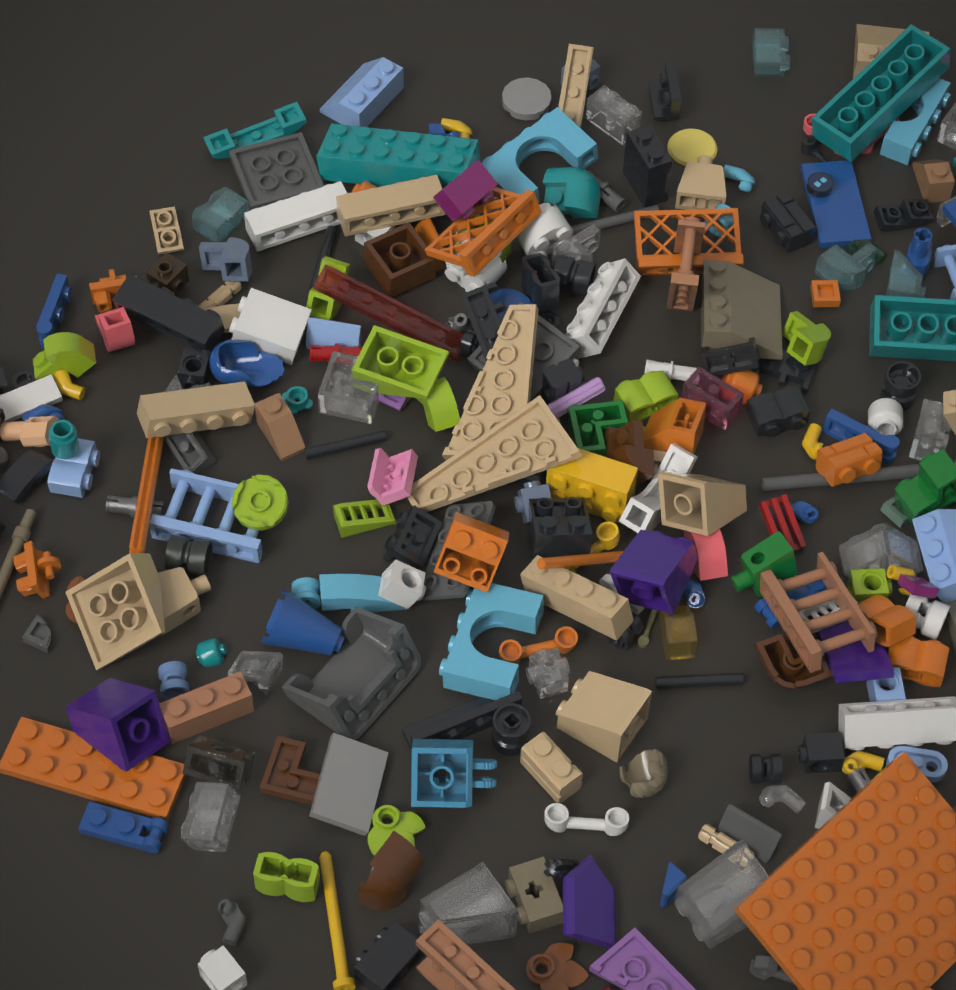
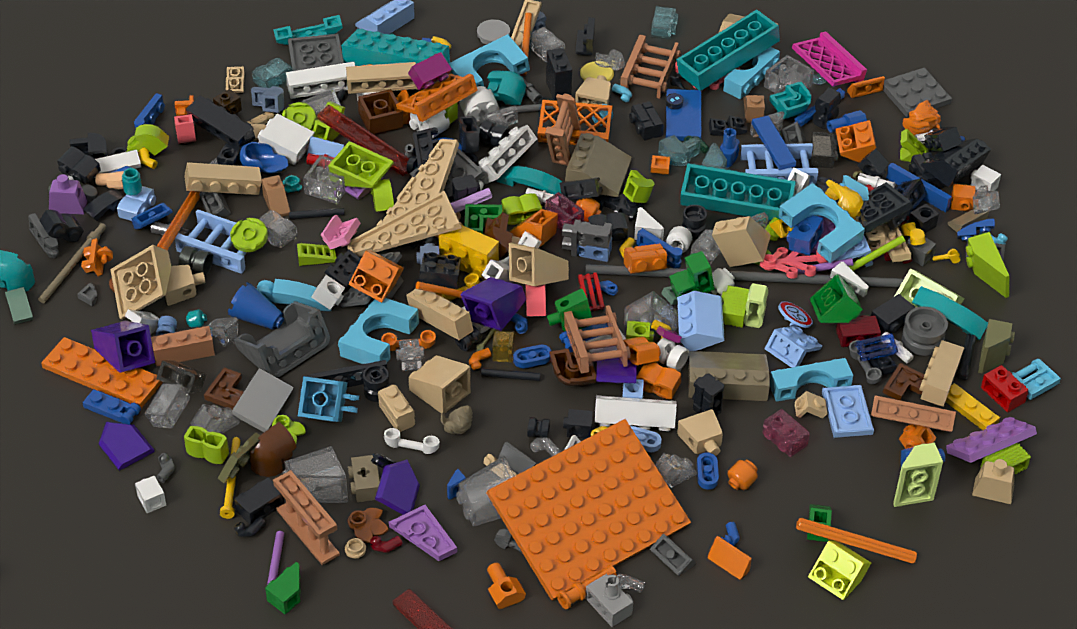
camera: 10 degrees right, 10 degrees down
(102, 487) = (151, 215): none -> blue slope
(137, 670) = (143, 318): none -> white slope
(157, 889) = (124, 444): none -> dark purple tile
(281, 280) = (301, 114): none -> lime tile
(286, 830) = (215, 419): none -> clear slope
(300, 481) = (279, 229): none -> clear brick
(306, 257) = (319, 101): none -> clear slope
(345, 893) = (239, 458): none -> olive wing
(582, 100) = (526, 36): none -> orange bar
(644, 659) = (476, 357): none -> orange arm
(653, 344) = (530, 177): none -> teal slope
(709, 125) = (614, 60): none -> clear plate
(722, 646) = (531, 356): none -> blue plate
(749, 117) = (636, 58): none -> nougat fence
(758, 439) = (588, 240): none -> flat silver hips
(830, 396) = (648, 223): none -> white slope

